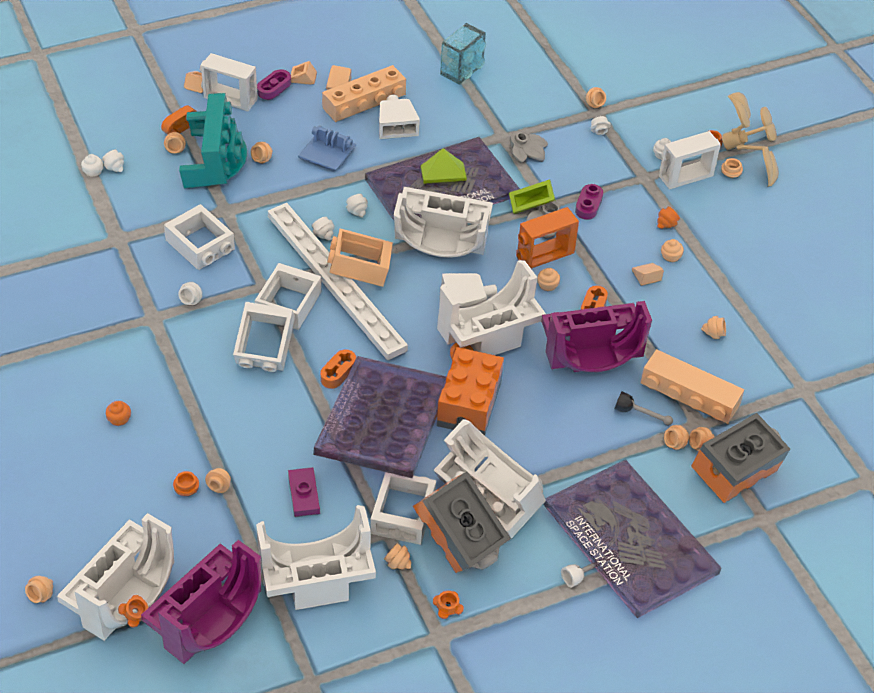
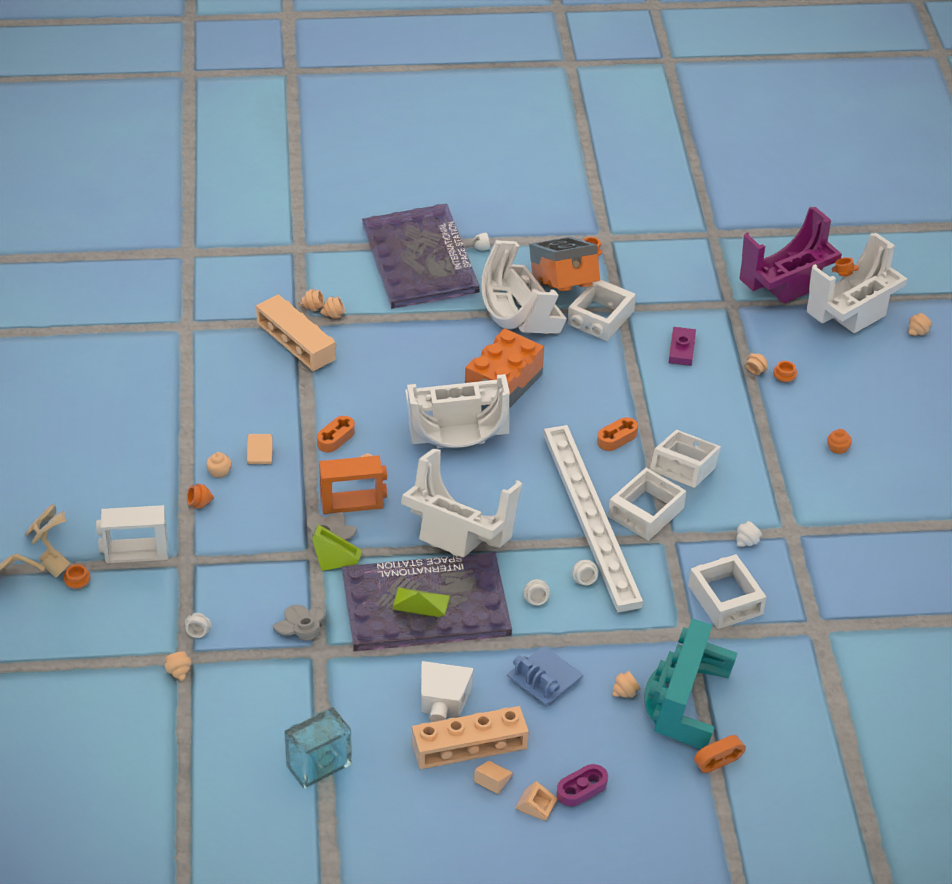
camera: 160 degrees left, 5 degrees down
(92, 165) = (838, 719): white plate -> none
(113, 161) = (812, 716): white plate -> none
(174, 142) = (731, 724): light nougat plate -> none
(193, 81) = (680, 826): light nougat slope -> none
(240, 99) = (636, 754): white window -> none
(318, 570) = (692, 269): white piece -> none
(361, 246) = (547, 494): light nougat window -> none
(382, 417) = (593, 367): clear purple plate -> none
(398, 557) = (621, 279): light nougat plate -> none
(468, 288) = (464, 464): white torso -> none
(588, 337) = (363, 384): magenta piece -> none
(589, 201) = (270, 541): magenta plate -> none
(626, 403) = (362, 343): hinge -> none
(659, 147) = (142, 579): white plate -> none
(715, 327) = (232, 382): light nougat plate -> none
(732, 168) = (82, 537): light nougat plate -> none
(740, 457) = (296, 264): dark grey piece -> none

